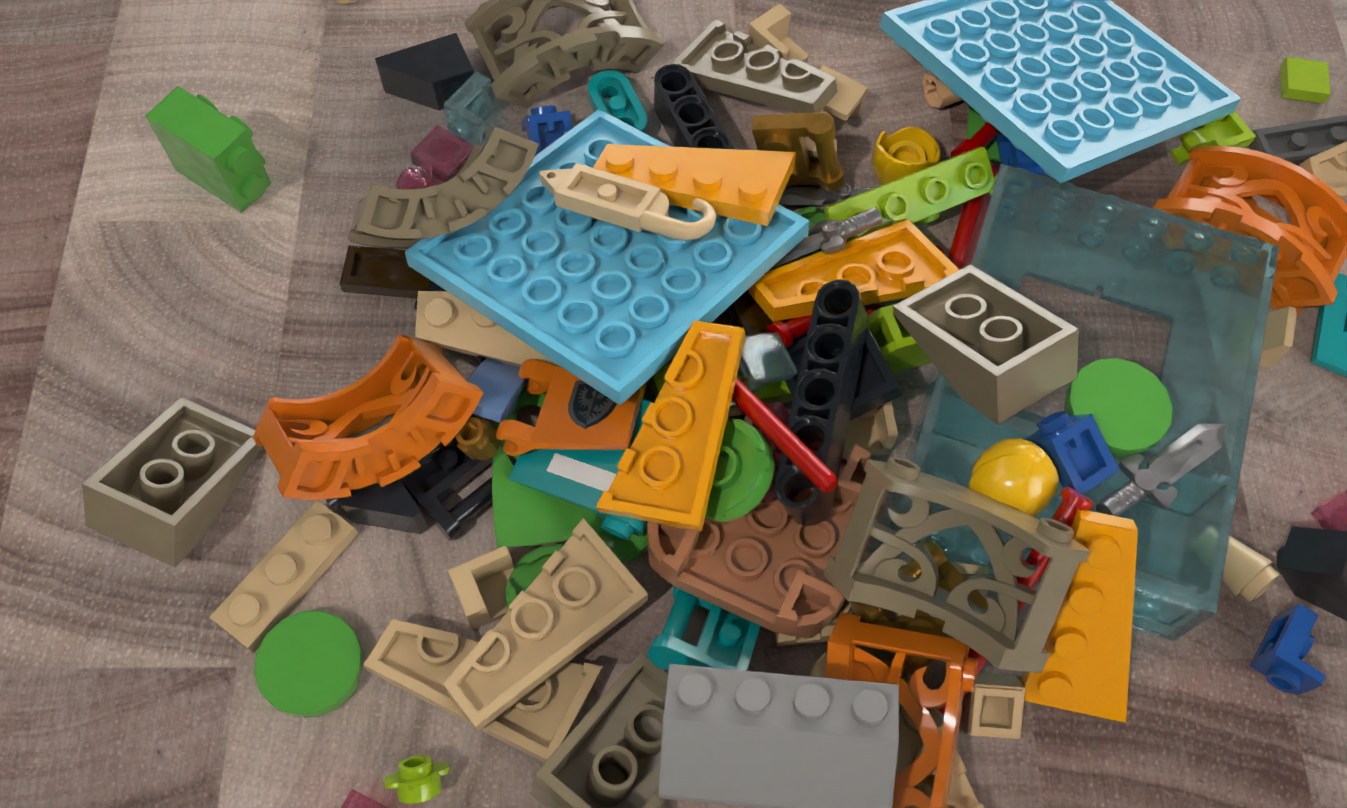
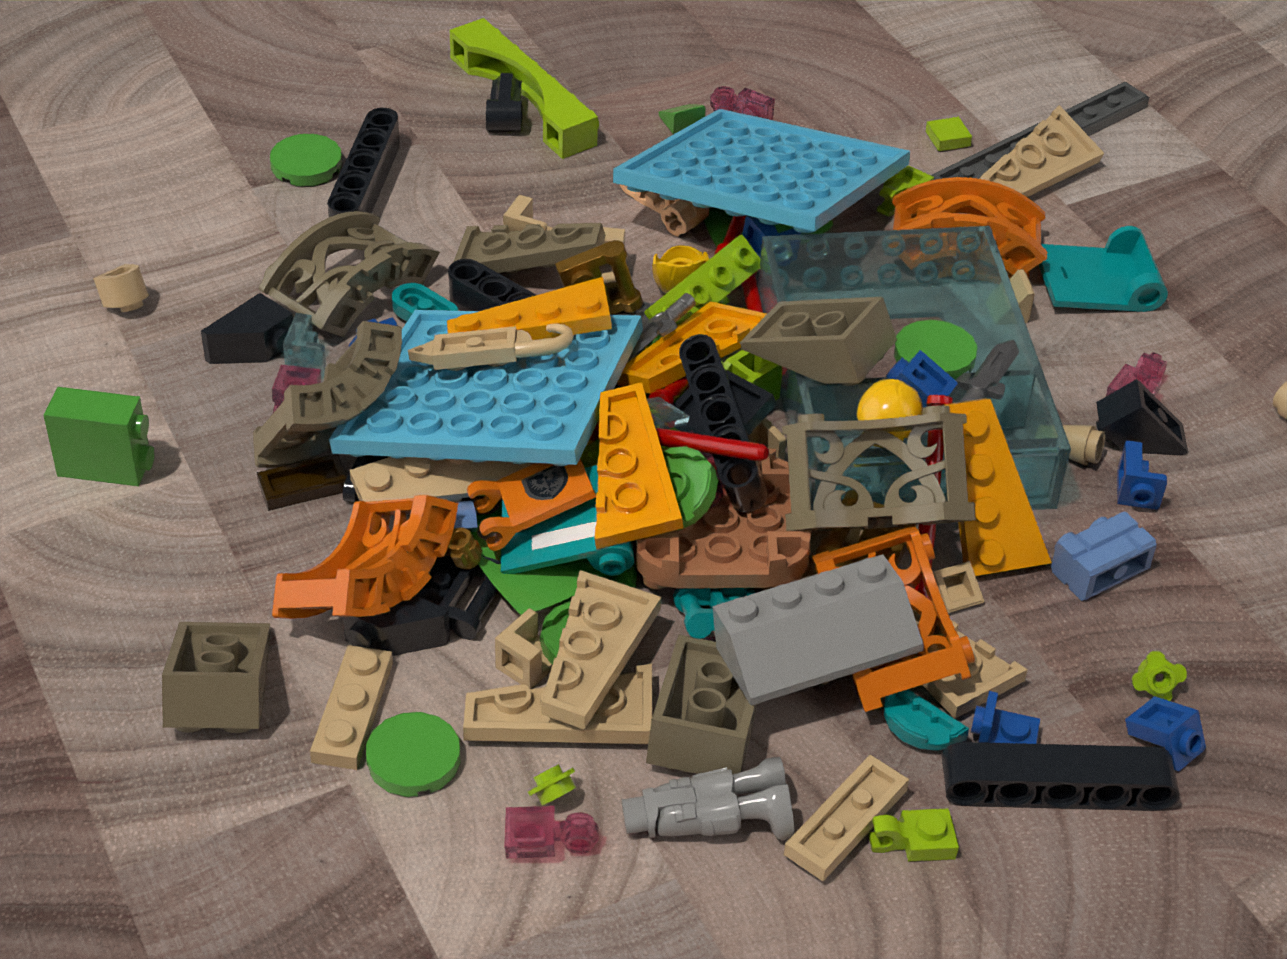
camera: 25 degrees left, 20 degrees down
(1191, 744) = (1102, 555): none -> medium blue brick

